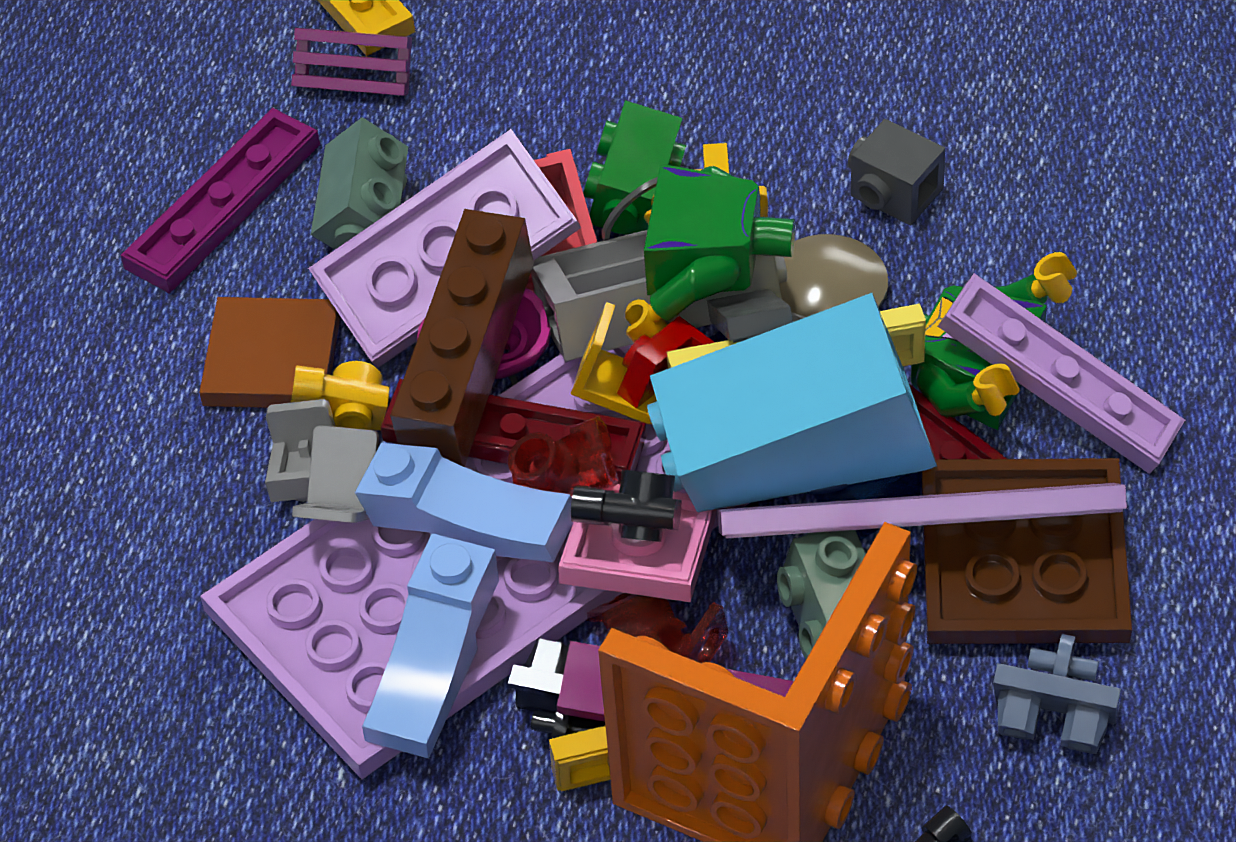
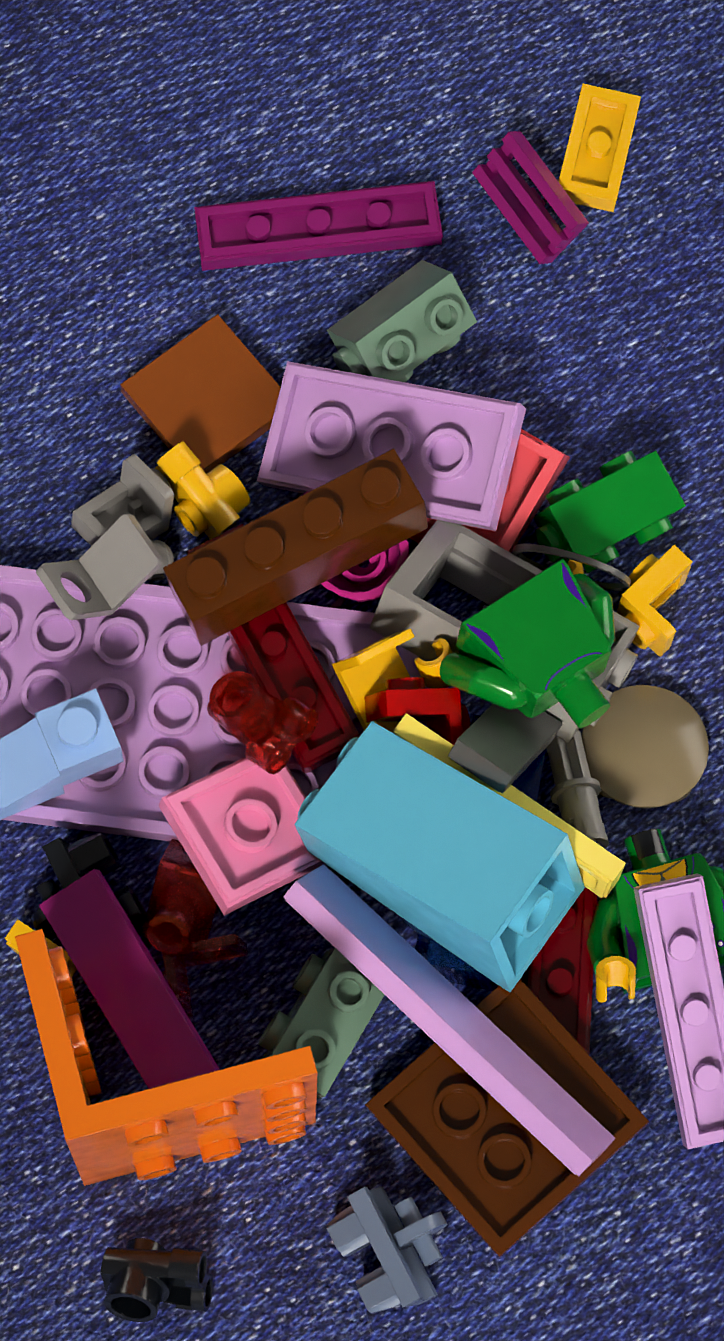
camera: 40 degrees right, 20 degrees up
(428, 493) = (161, 680): light blue slope -> none
(641, 506) = (250, 809): black plate -> none

